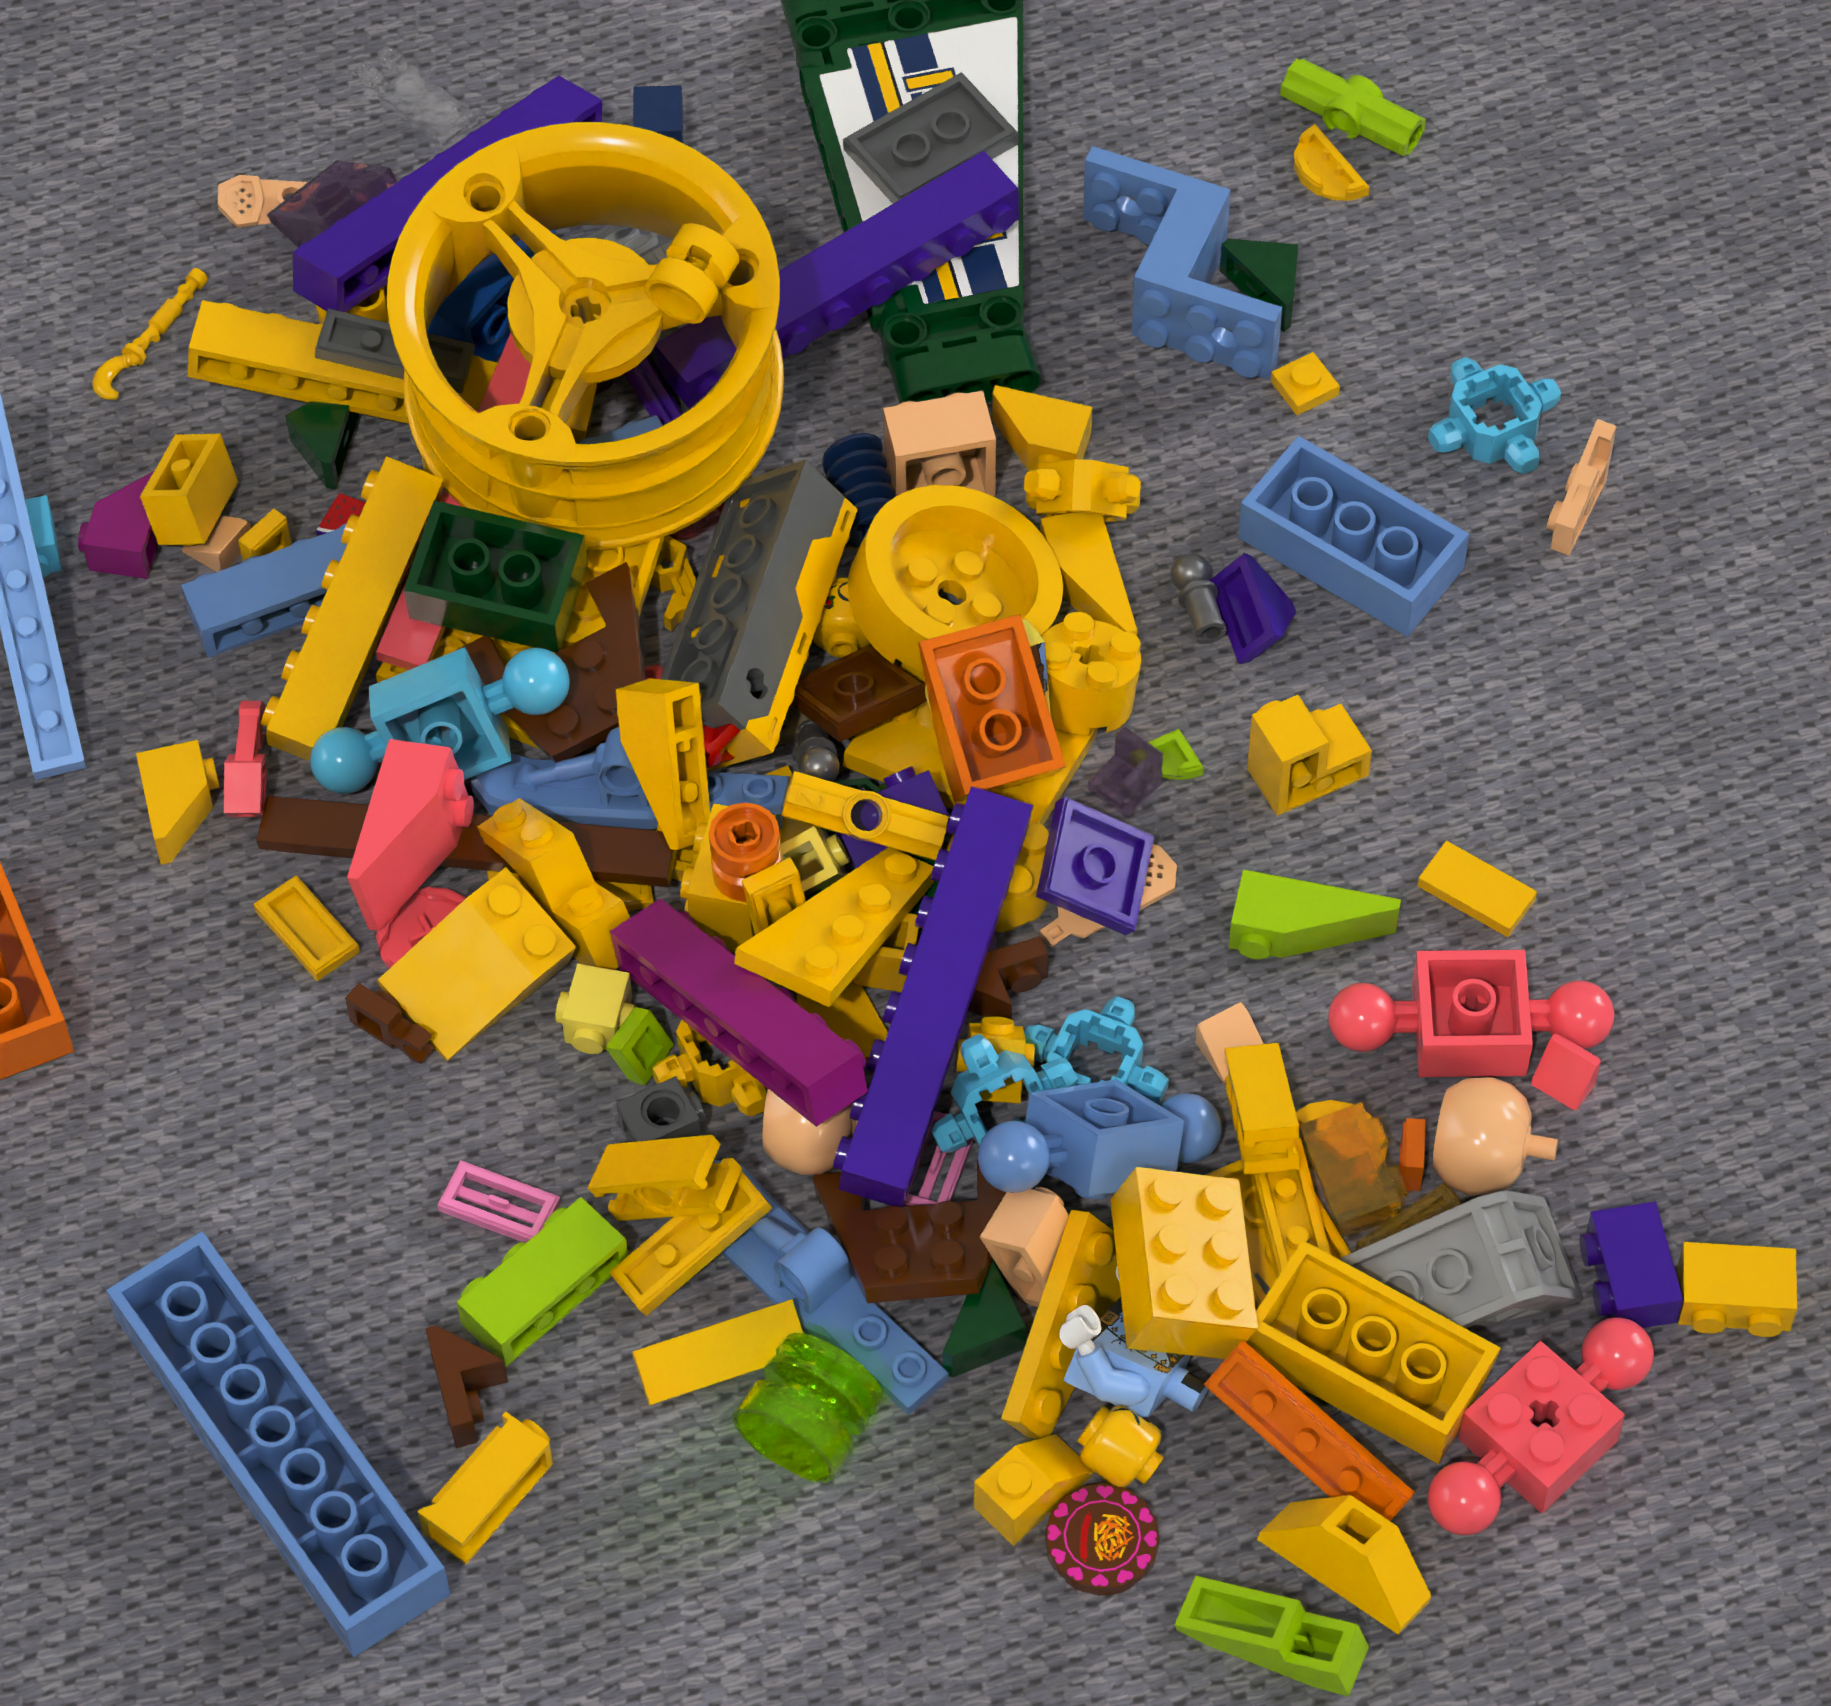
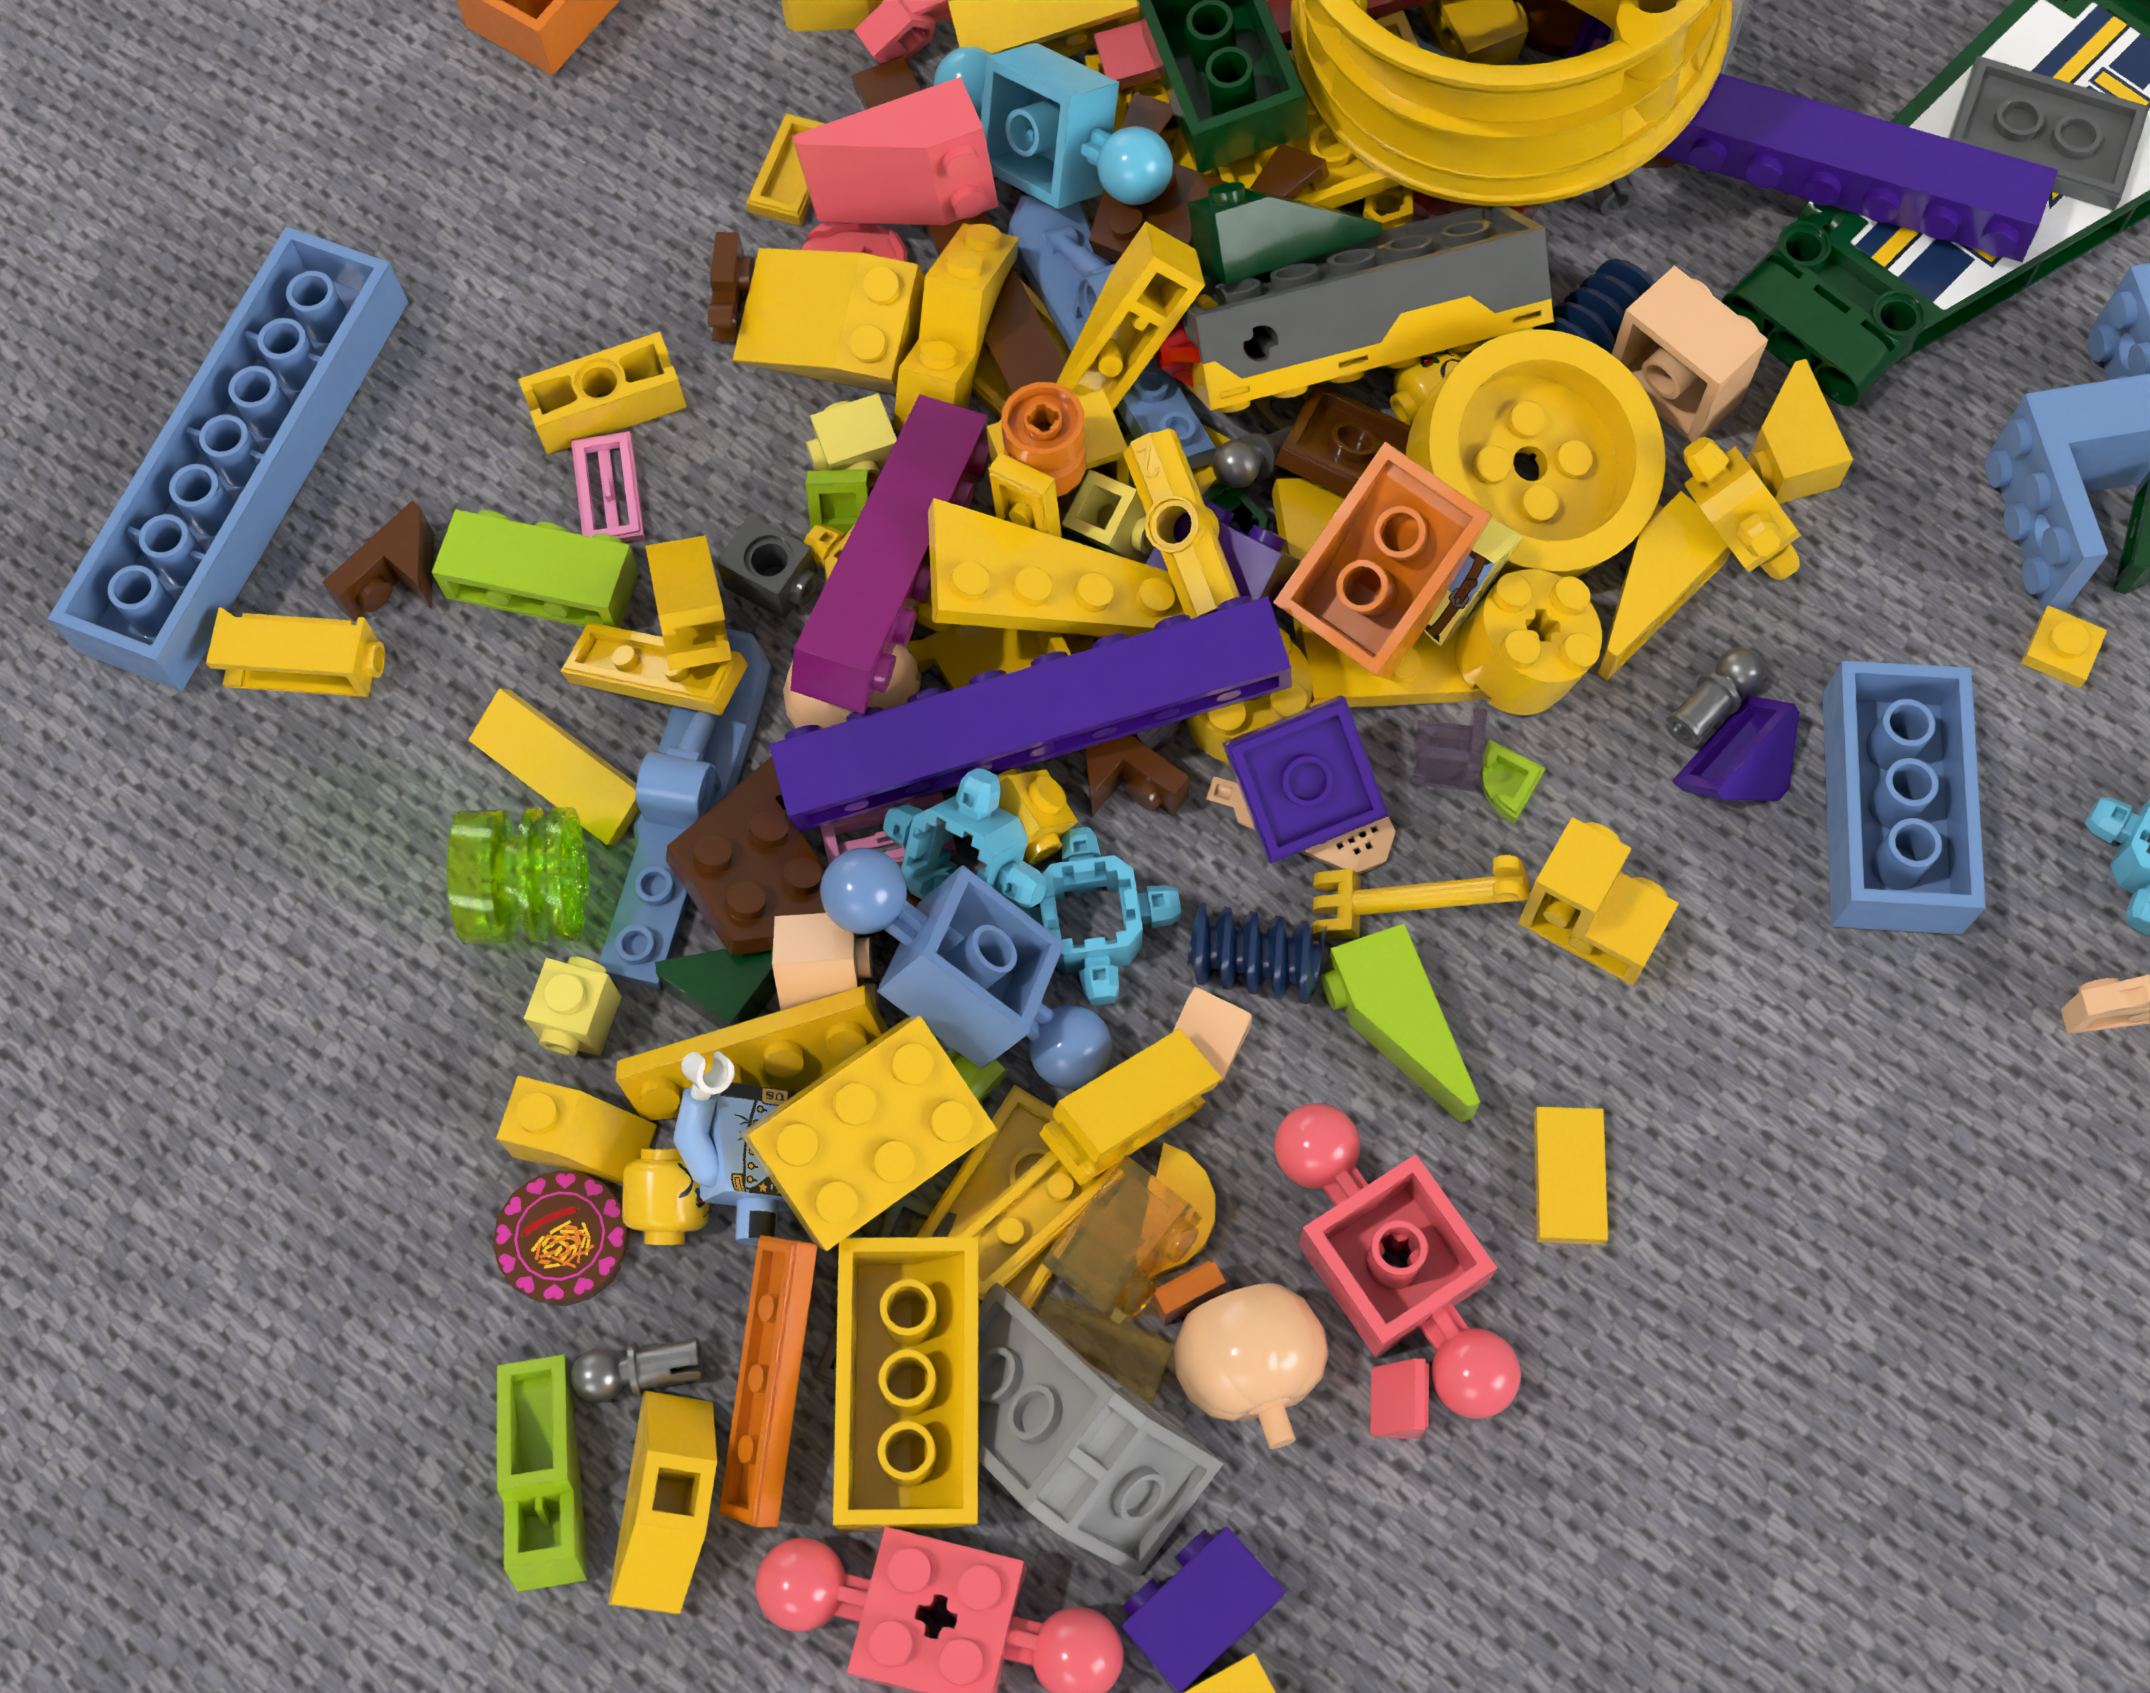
camera: 60 degrees right, 10 degrees up
(413, 1139) = (573, 390): none -> yellow piece
(661, 629) = (1254, 232): none -> dark green slope
(933, 1432) = (573, 1006): none -> light yellow brick
(1194, 974) = (1255, 953): none -> dark blue piece
(1196, 901) = (1351, 901): none -> yellow hinge
(1226, 1558) = (601, 1373): none -> flat silver pin

